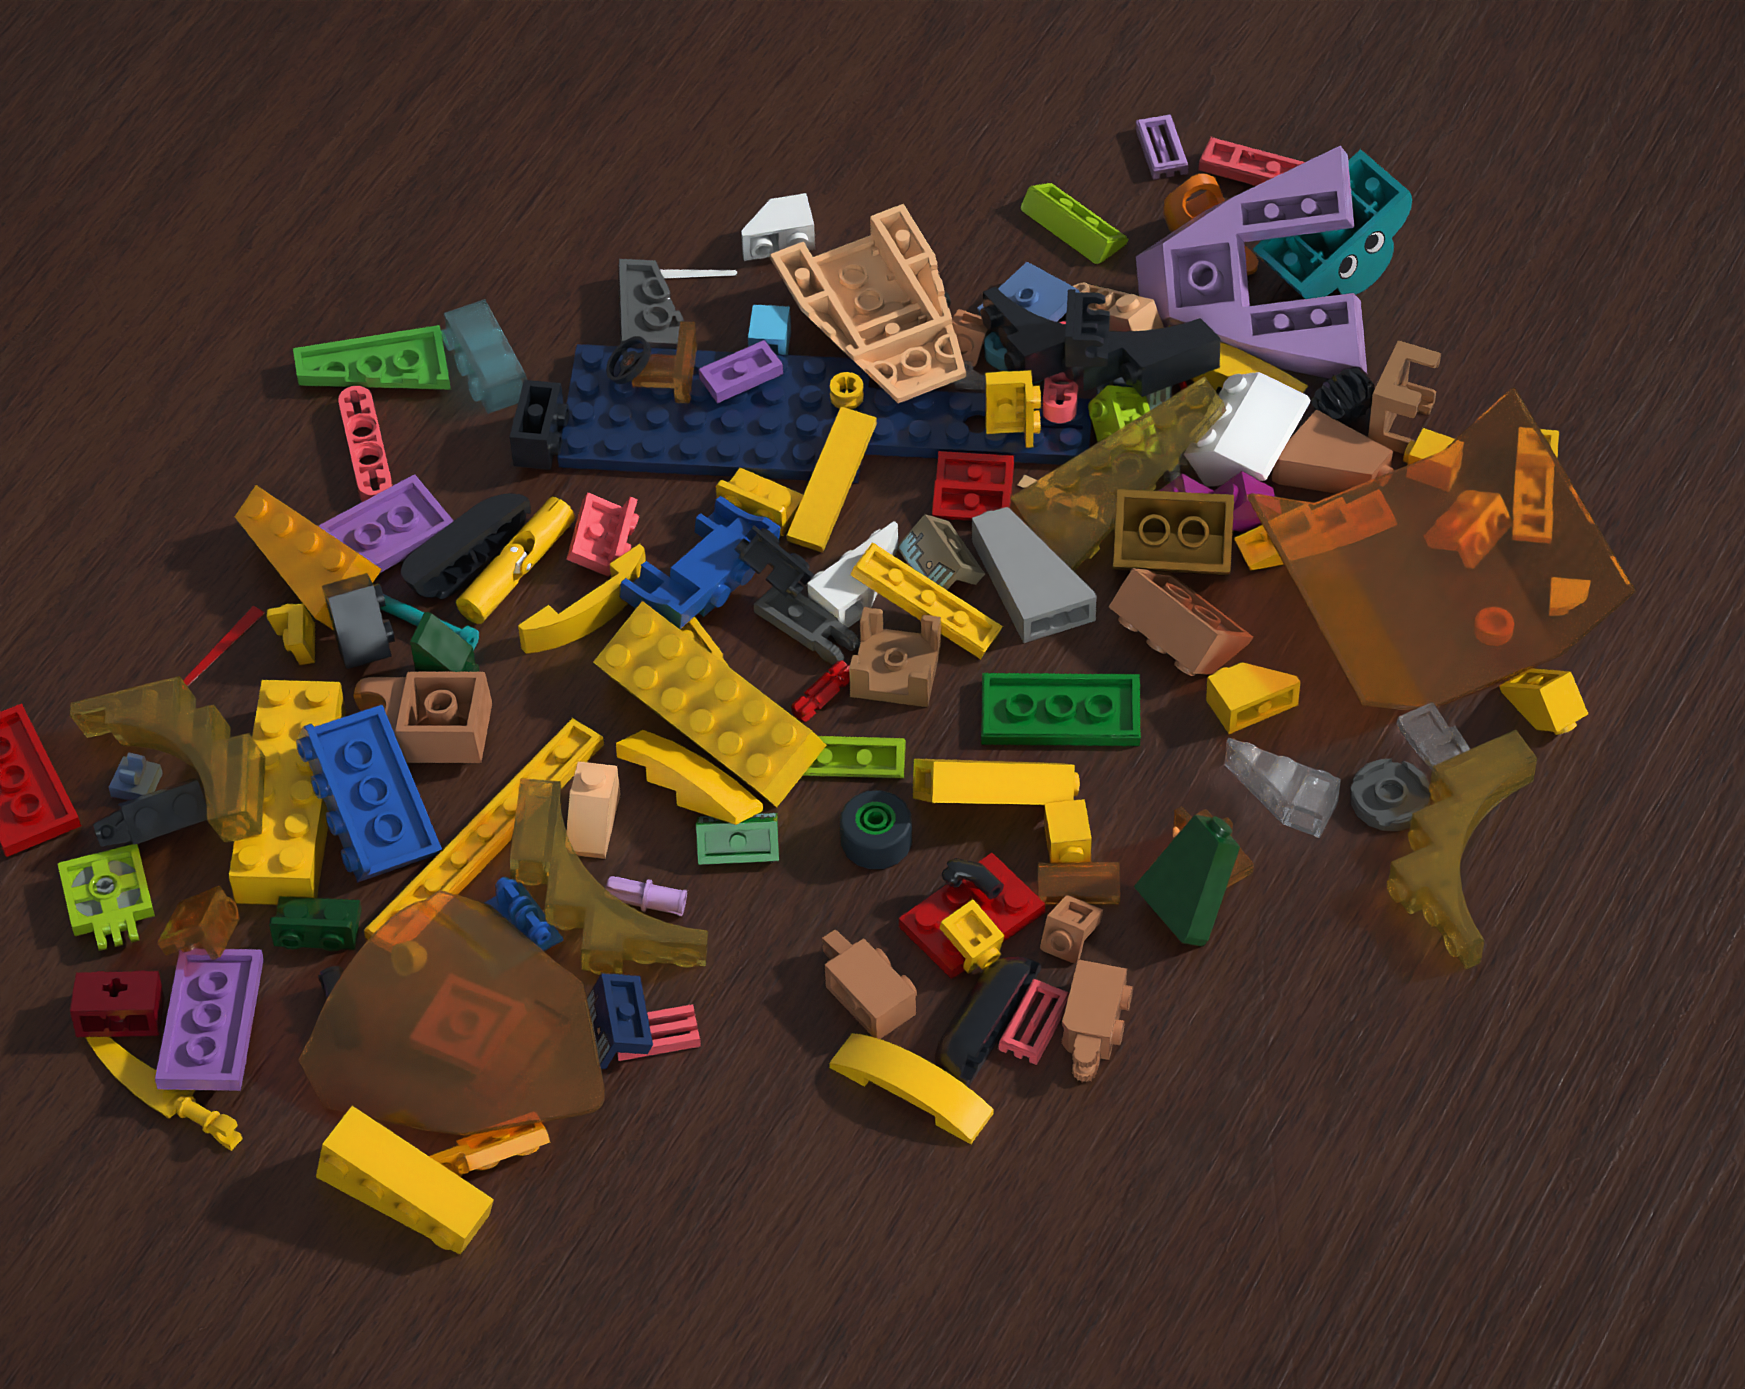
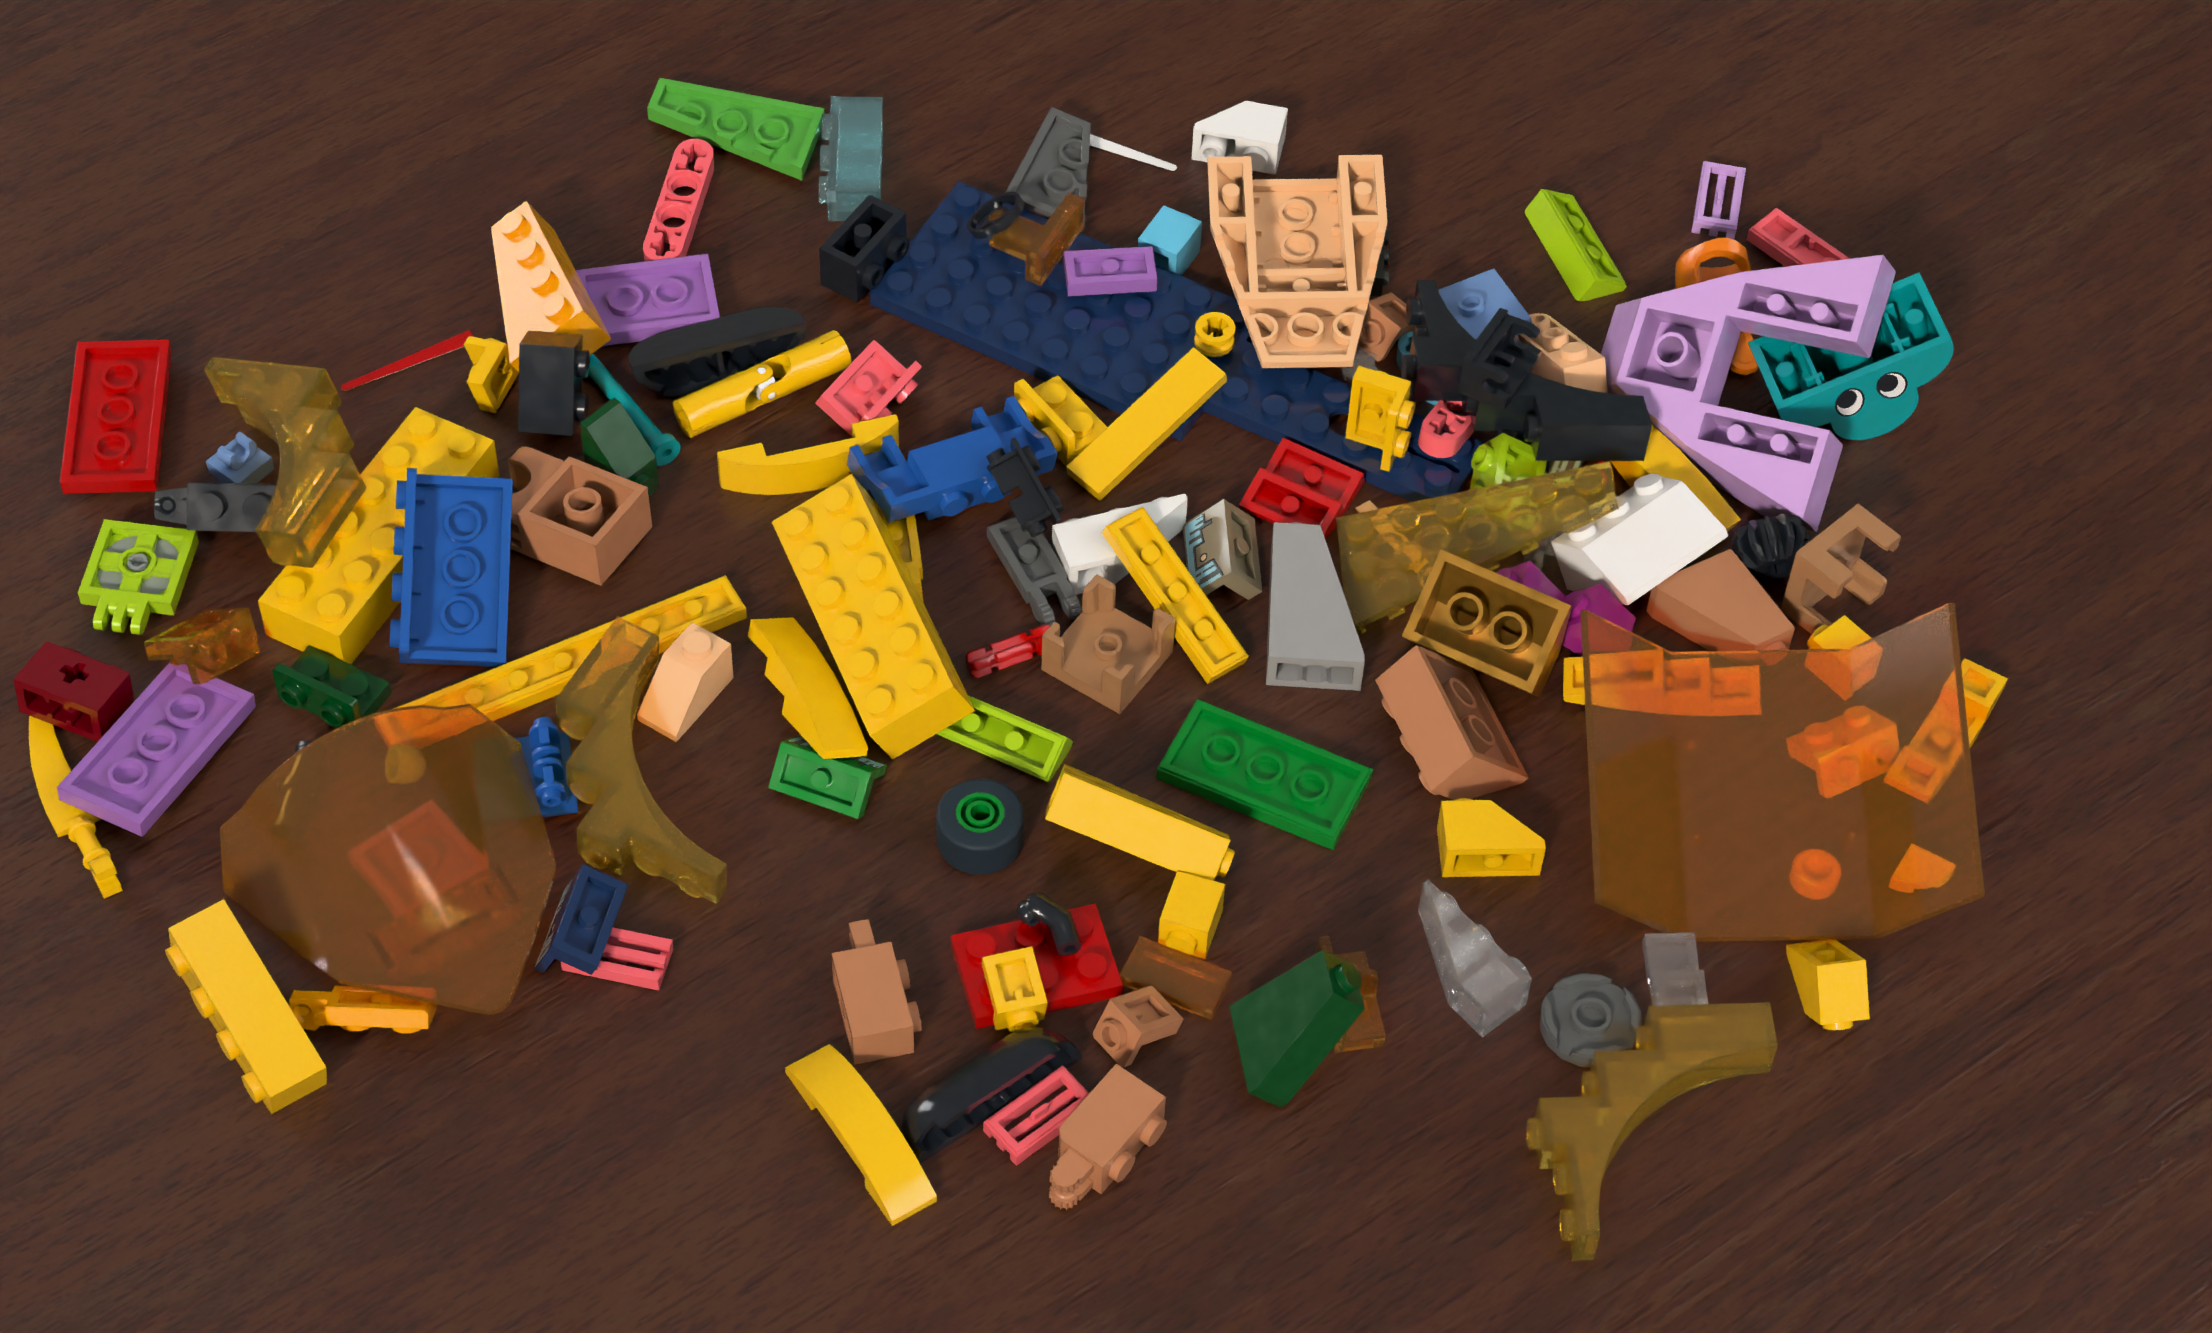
camera: 20 degrees right, 0 degrees up
(647, 895) = (692, 799): lavender axle -> none

